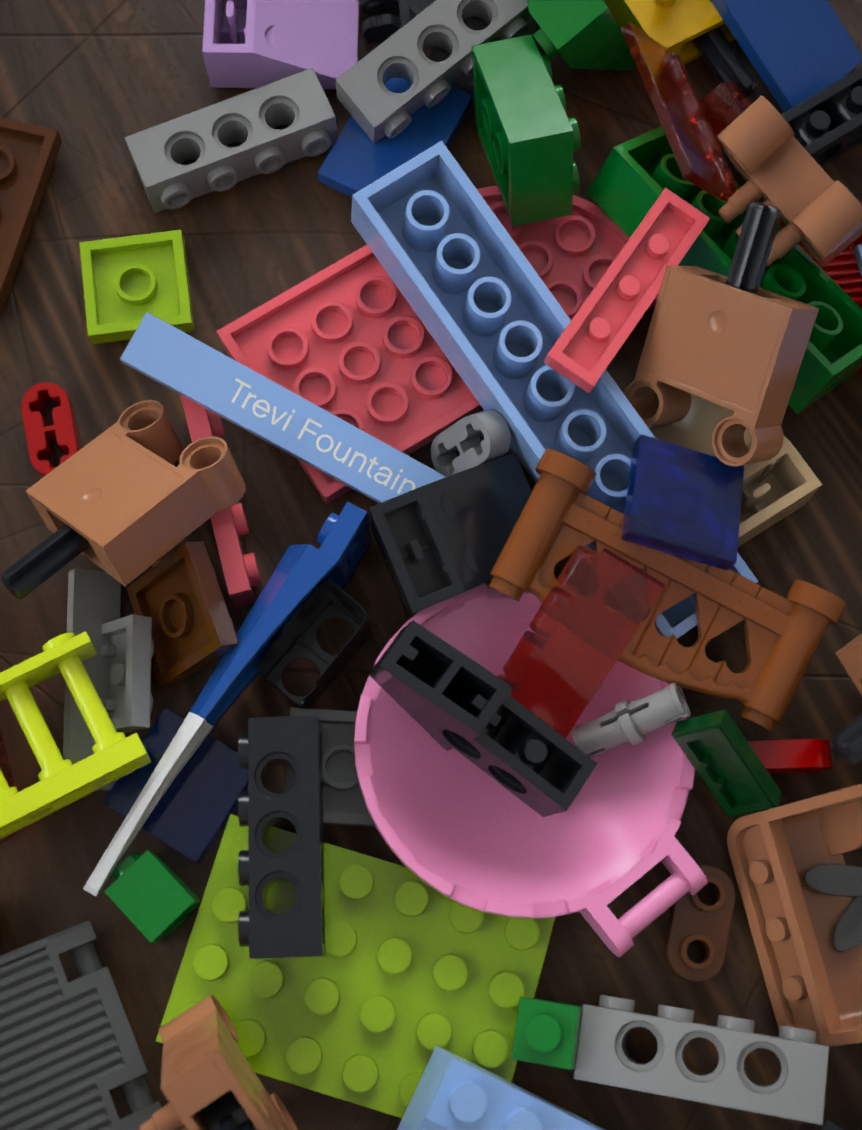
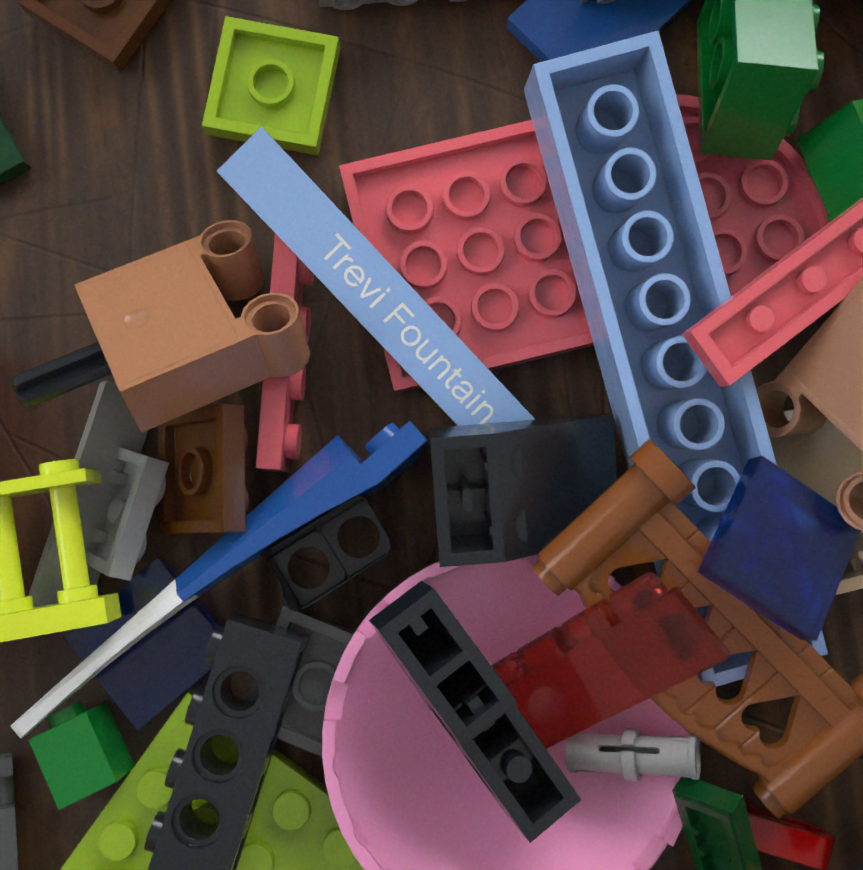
camera: 20 degrees right, 10 degrees up
(40, 434) = (121, 215): red beam -> none
(466, 438) = (566, 383): light grey beam -> none

